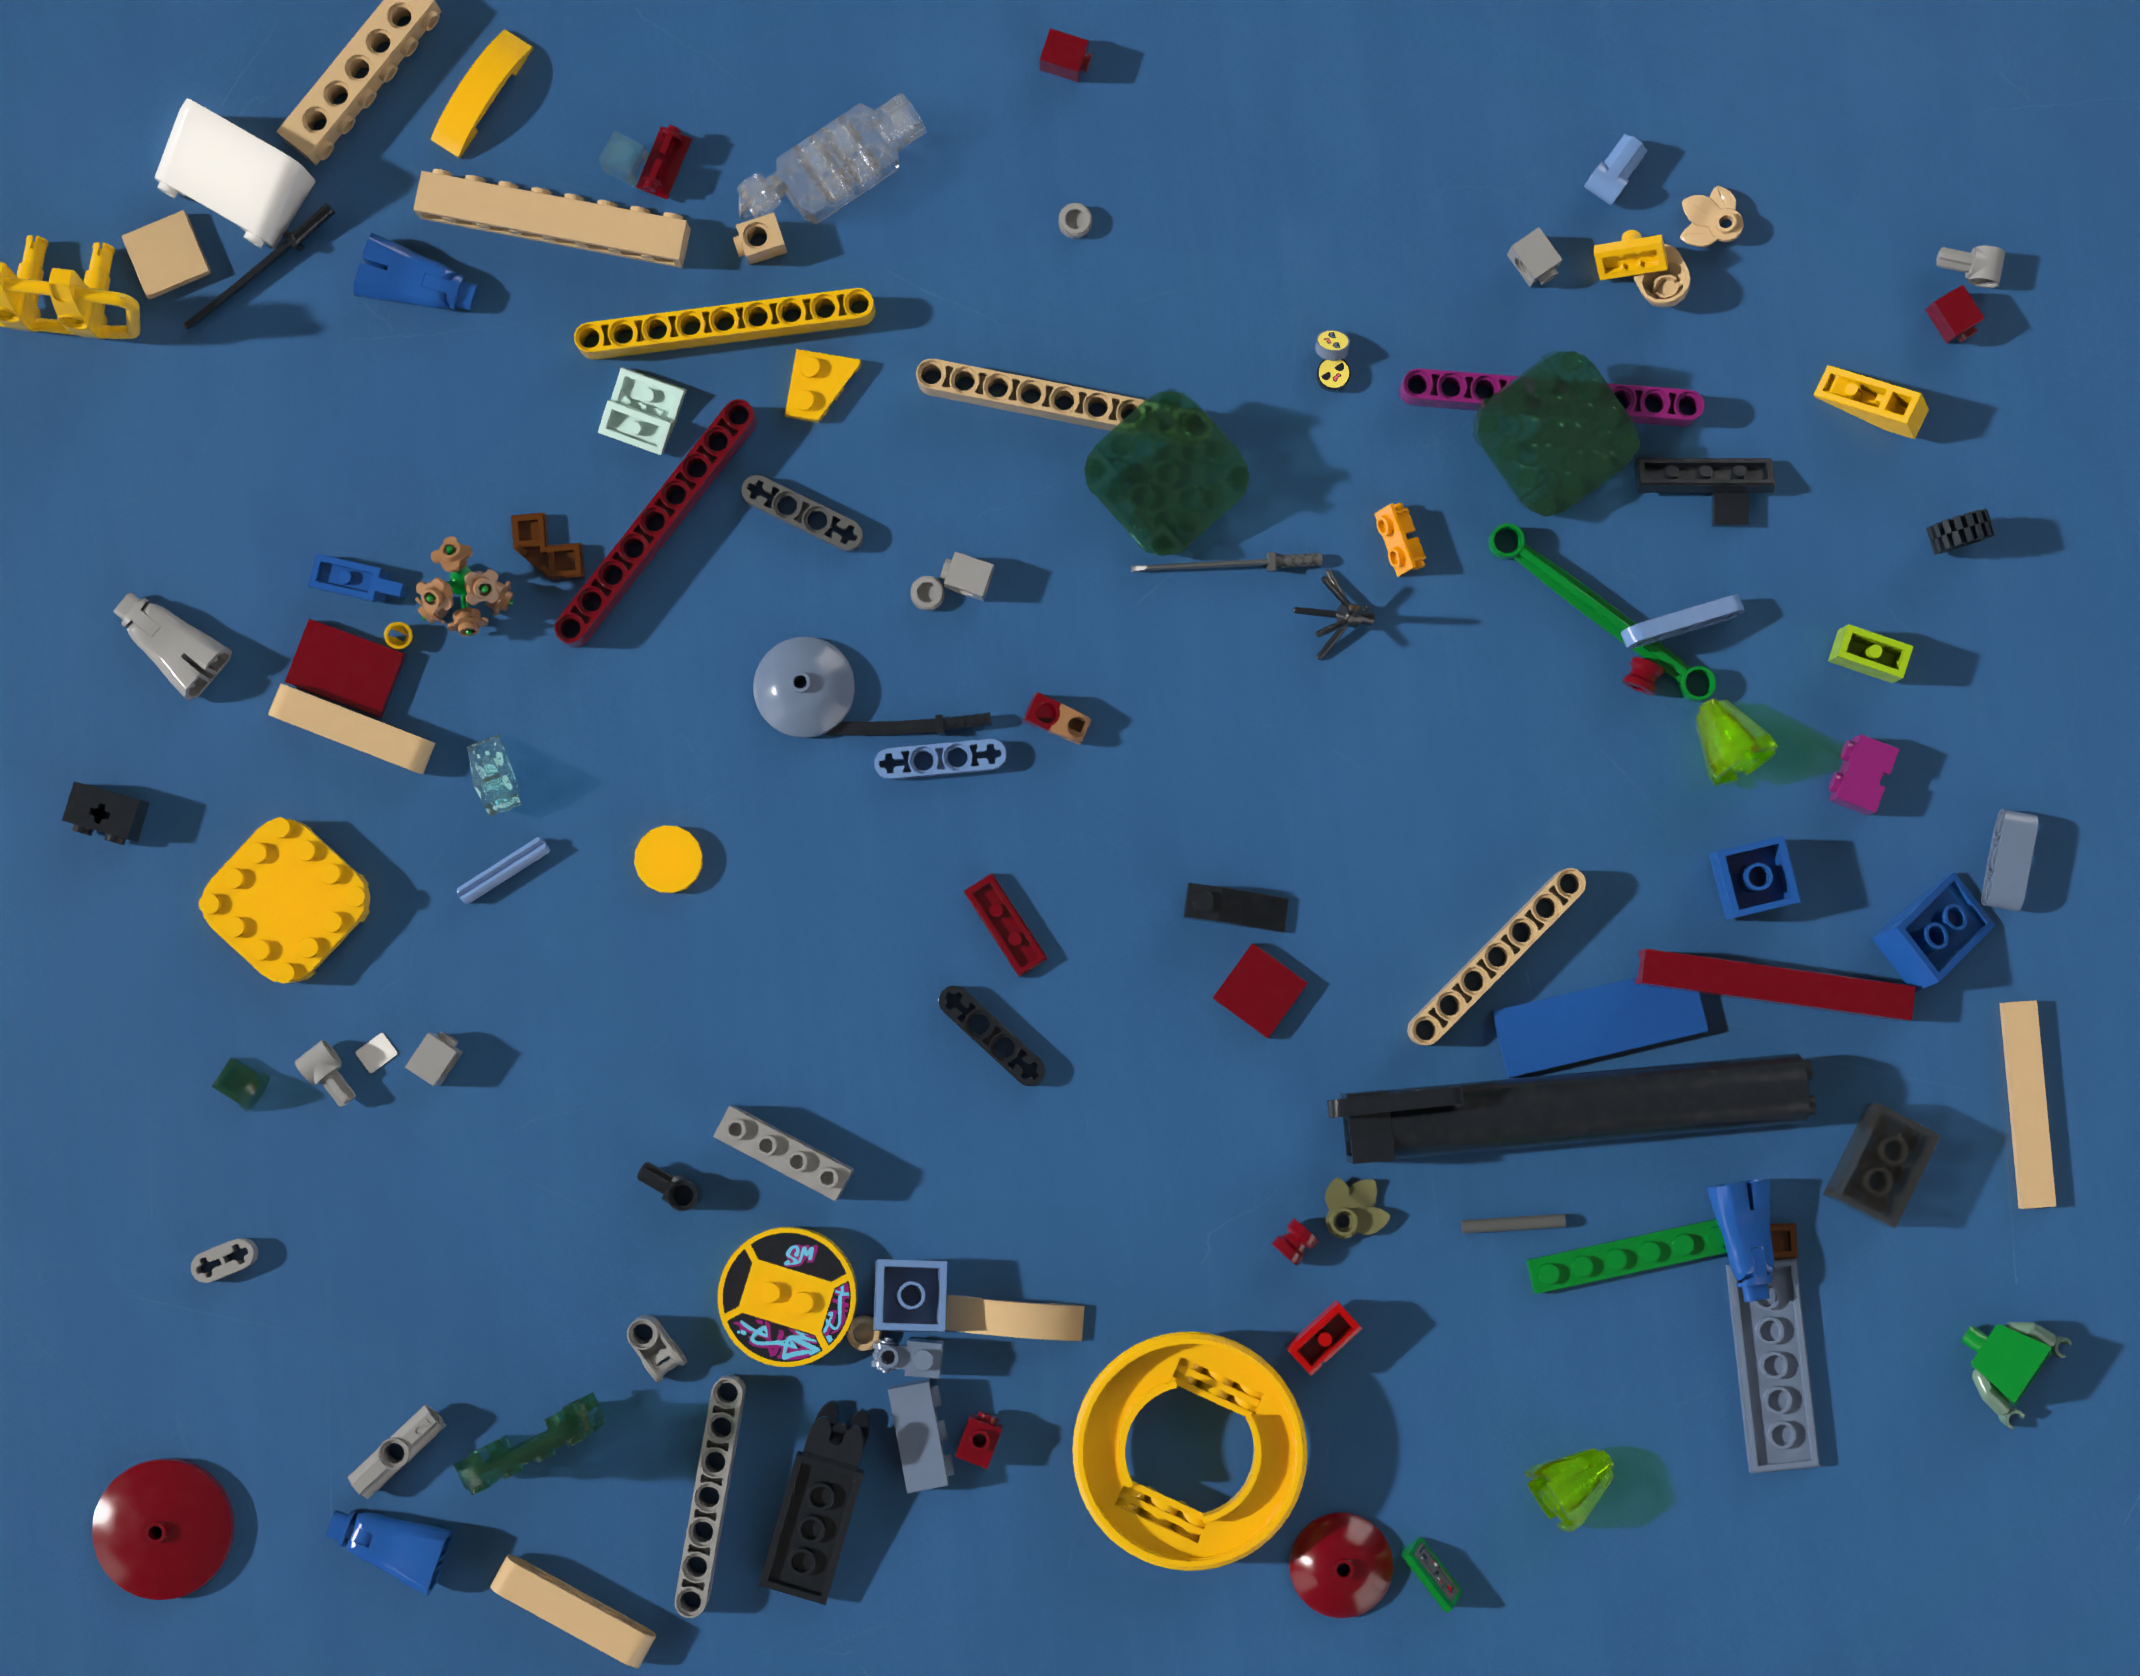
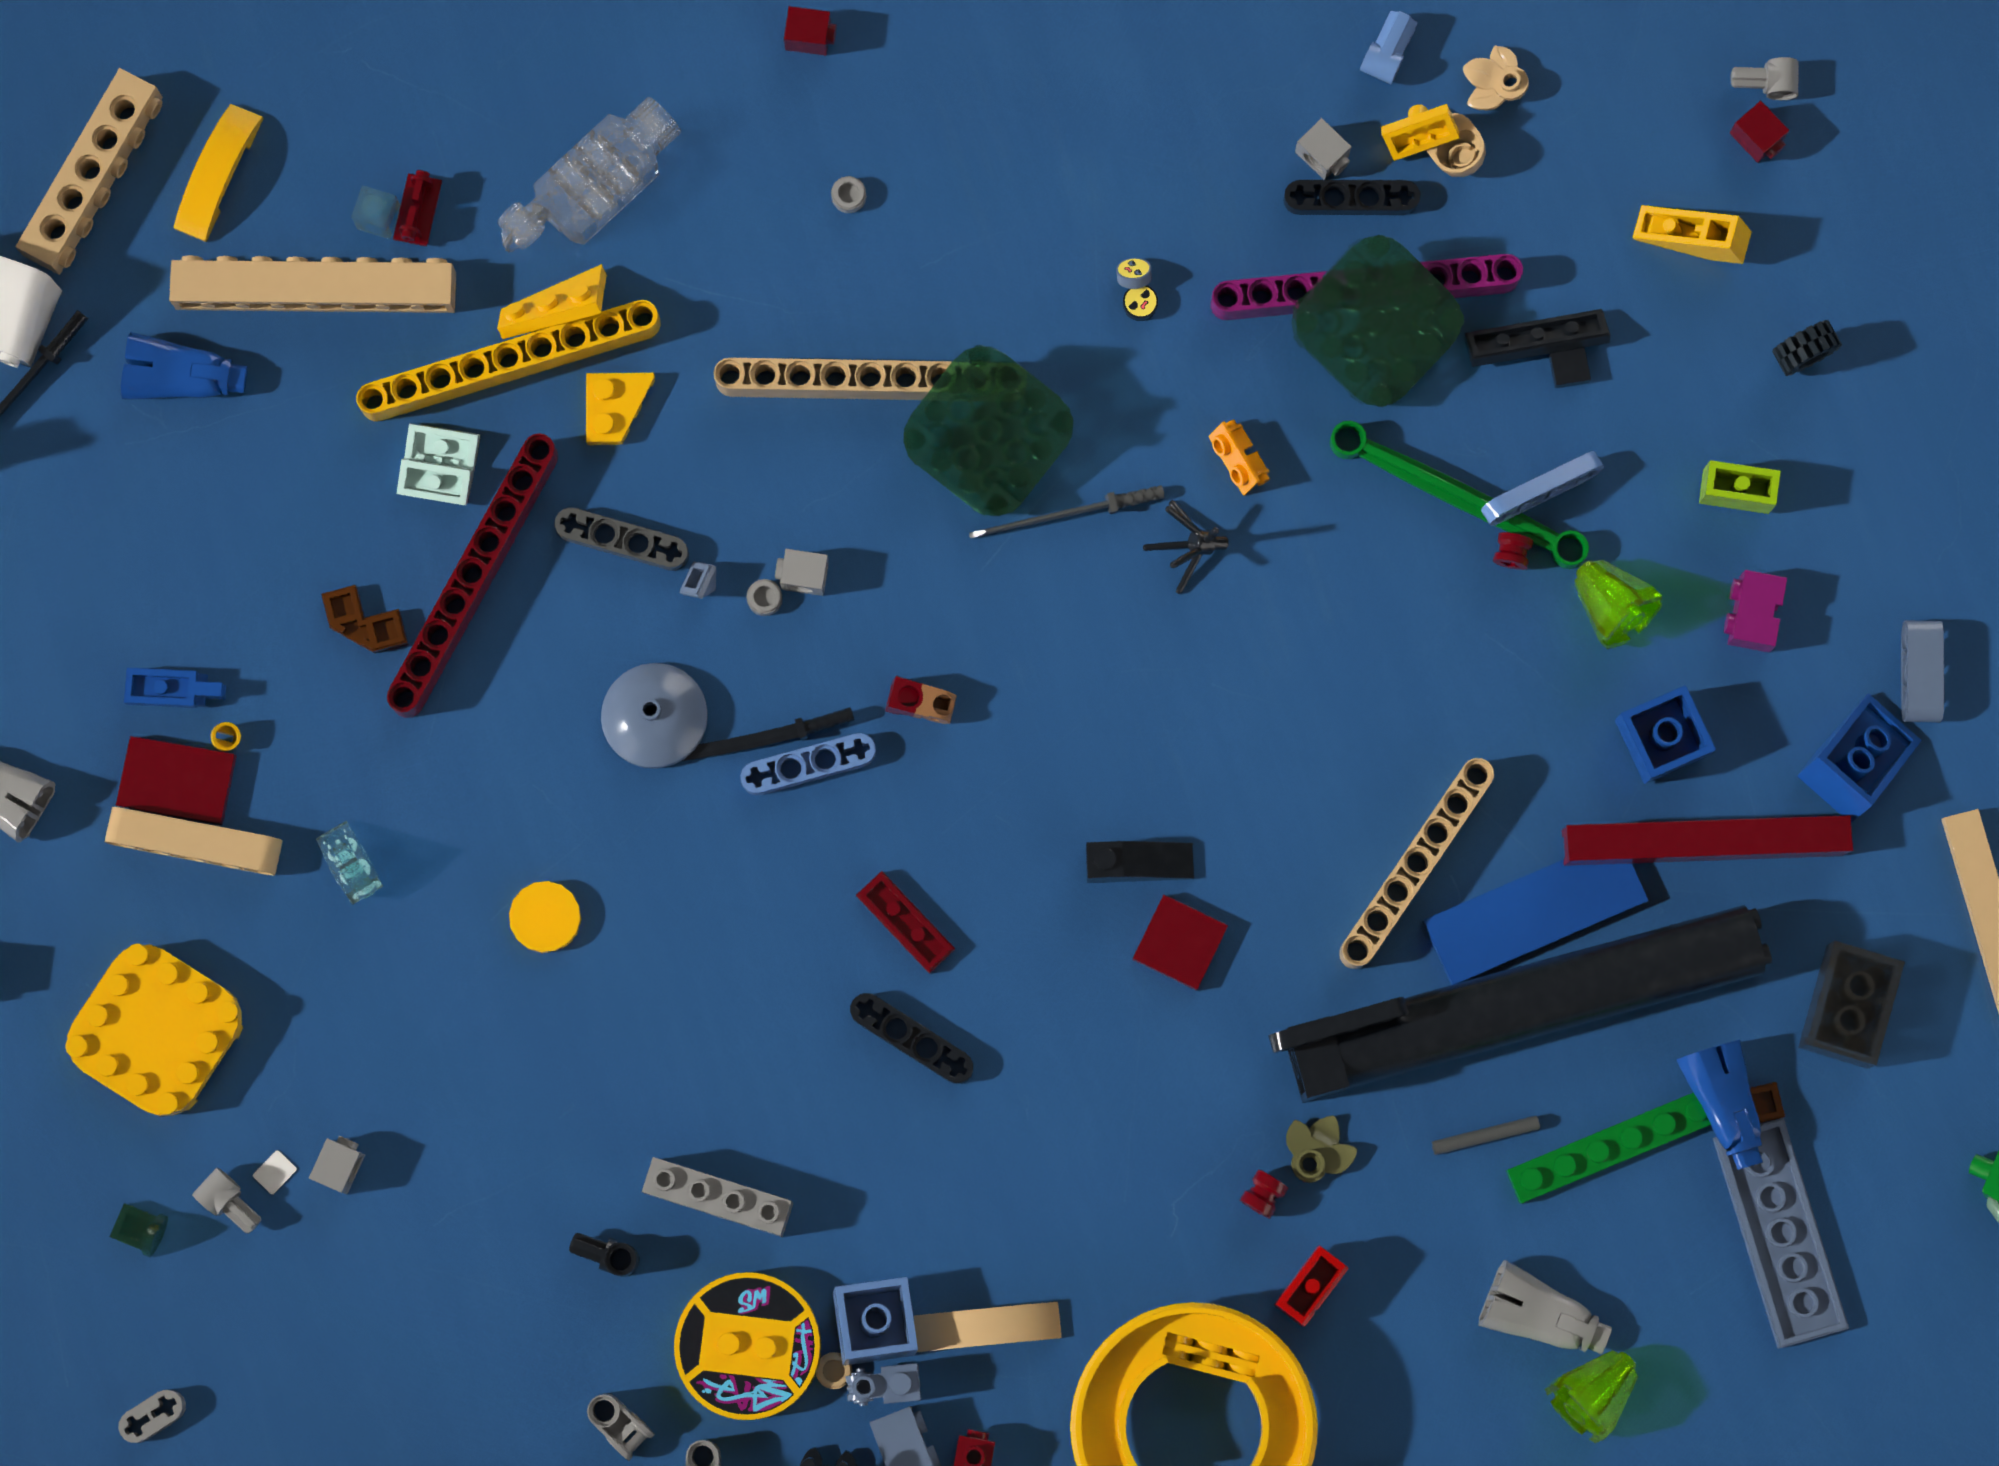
camera: 10 degrees left, 5 degrees down
(471, 585) = (286, 670): medium nougat plant -> none
(503, 870) = (375, 959): medium blue axle -> none
(764, 225) = (532, 254): tan brick -> none
(780, 278) = (556, 305): none -> yellow wing
(869, 566) = (699, 580): none -> sand blue slope
(1527, 1396) = (1532, 1310): none -> light grey piece
(1552, 313) = (1351, 190): none -> black beam

